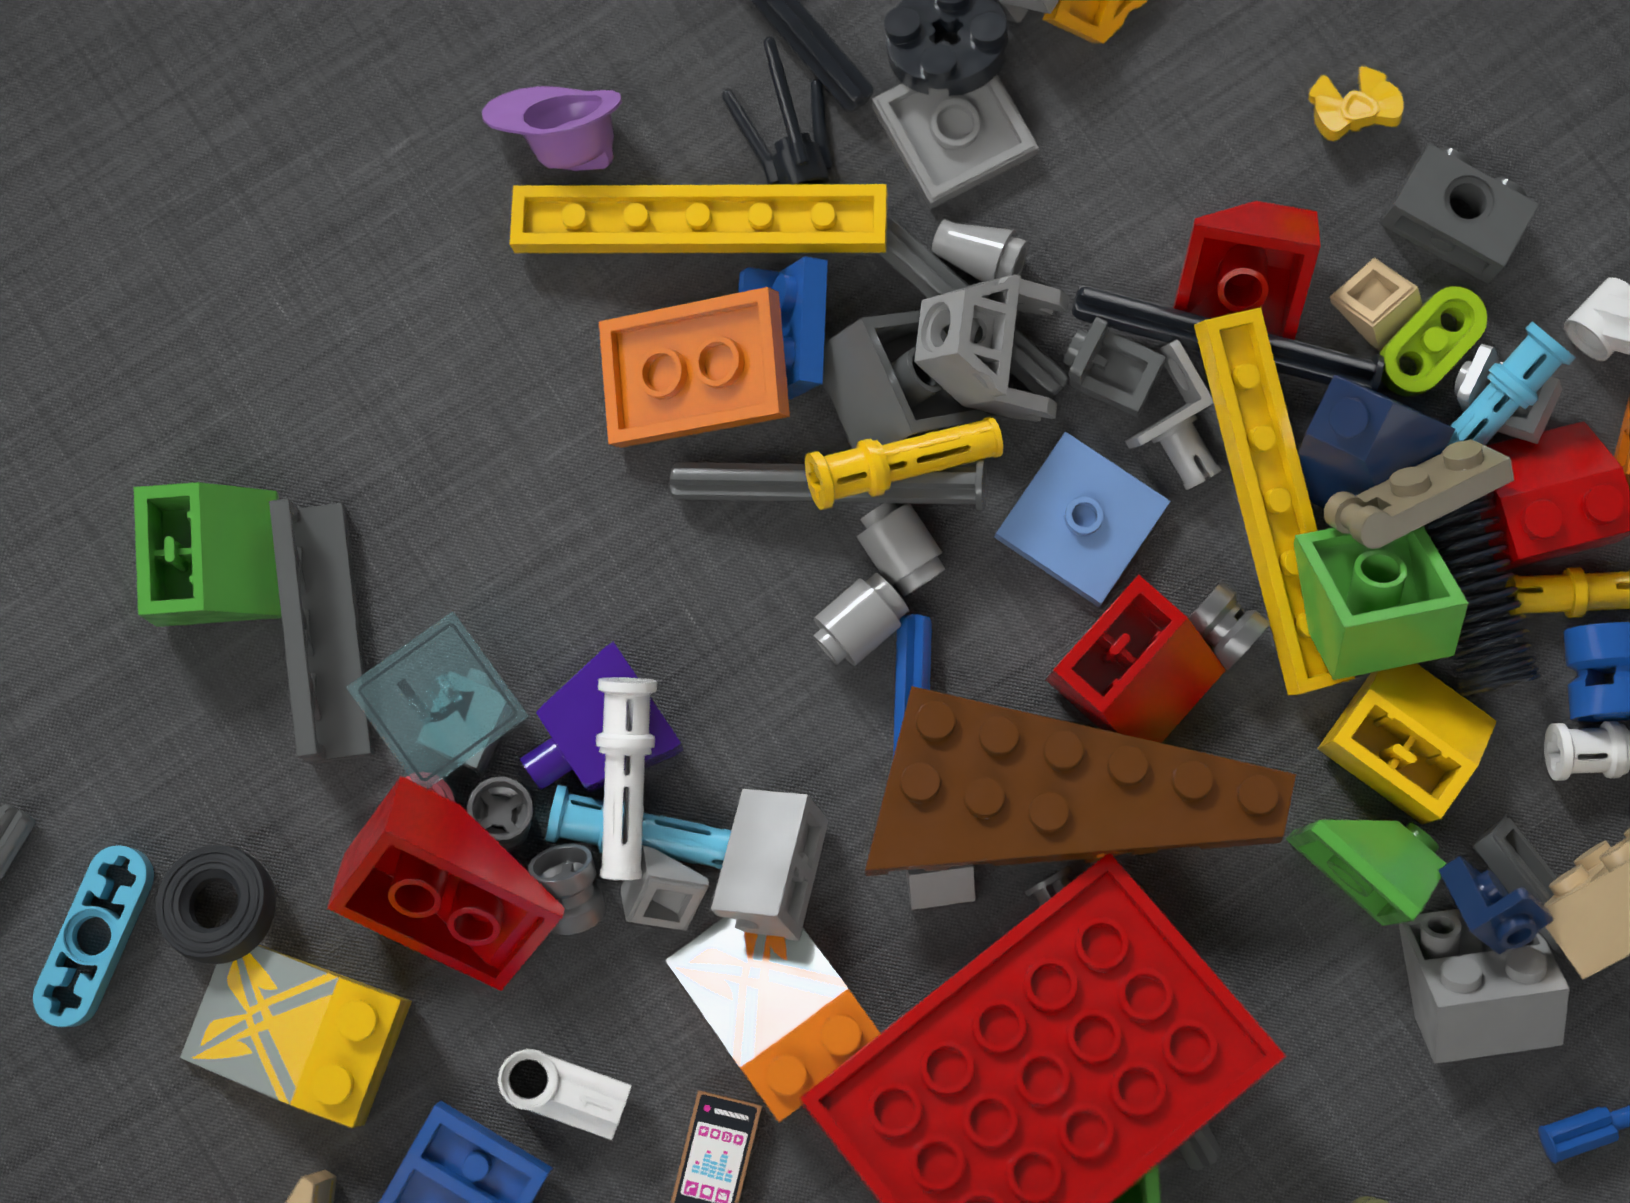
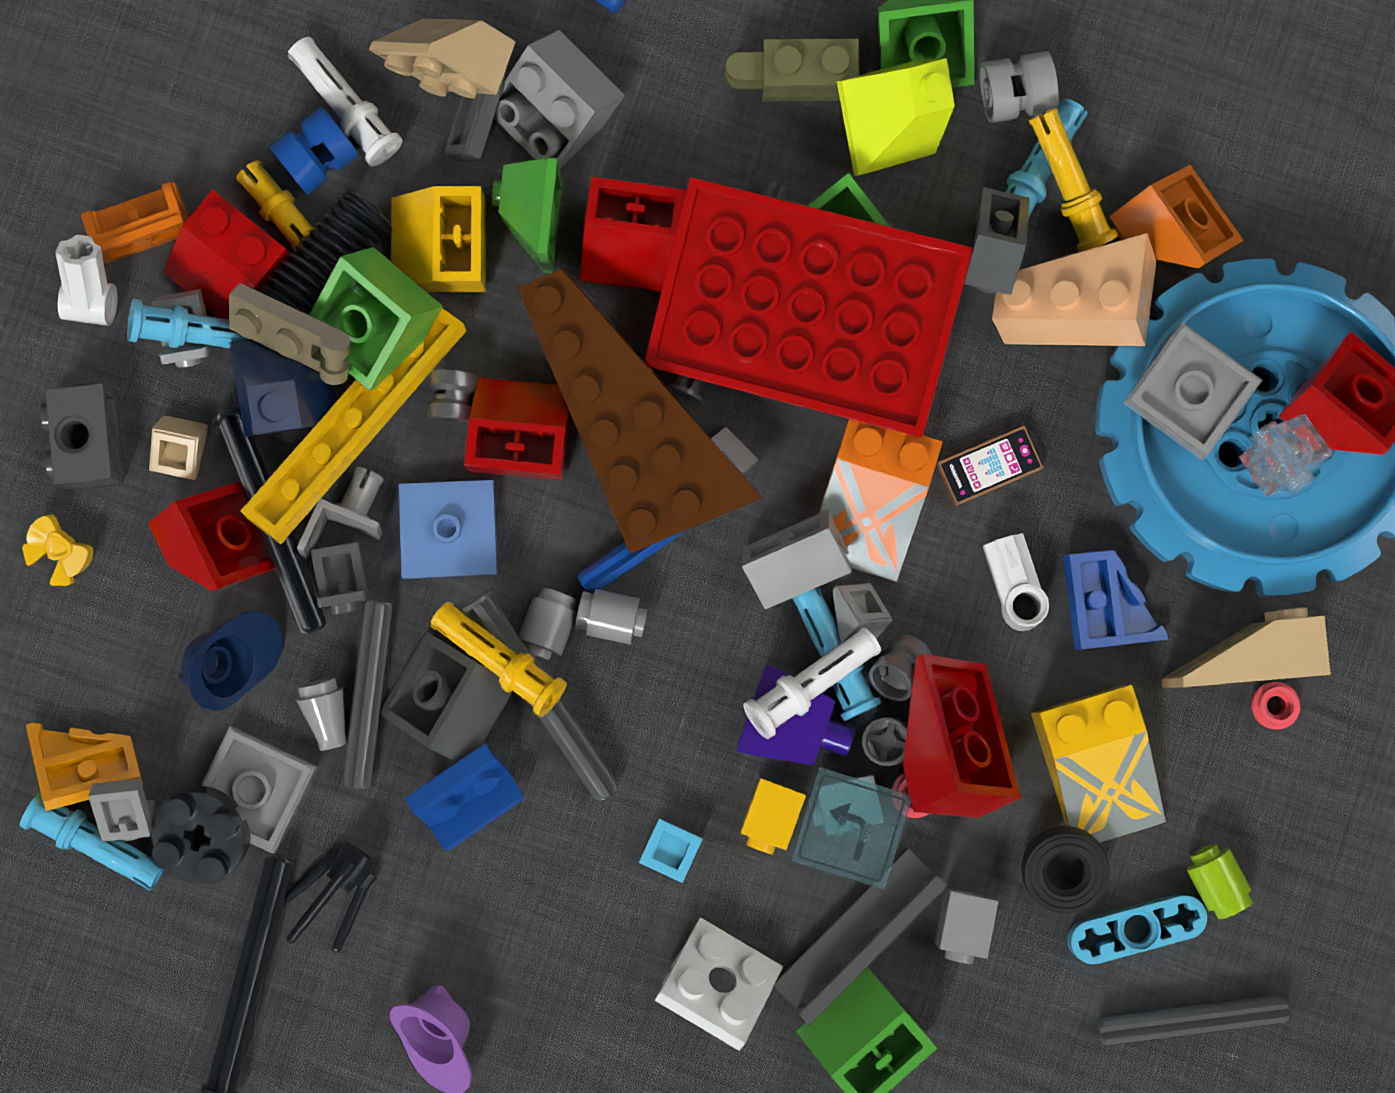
camera: 125 degrees left, 5 degrees up
(70, 1065) = (1219, 881): none -> lime brick
(242, 751) = (965, 925): none -> light grey brick
(393, 404) = (690, 994): none -> white piece
(517, 632) = (771, 816): none -> yellow brick
(564, 500) = (670, 850): none -> medium azure plate
(694, 368) = (532, 830): orange plate -> none
(699, 218) = (433, 901): yellow plate -> none
(980, 371) = (403, 651): light grey piece -> none
(1107, 194) = (231, 660): none -> dark blue piece
(1272, 948) = (629, 233): none -> red slope
(1430, 343) = (181, 398): lime plate -> none
(1489, 911) = (514, 123): dark blue bracket -> none

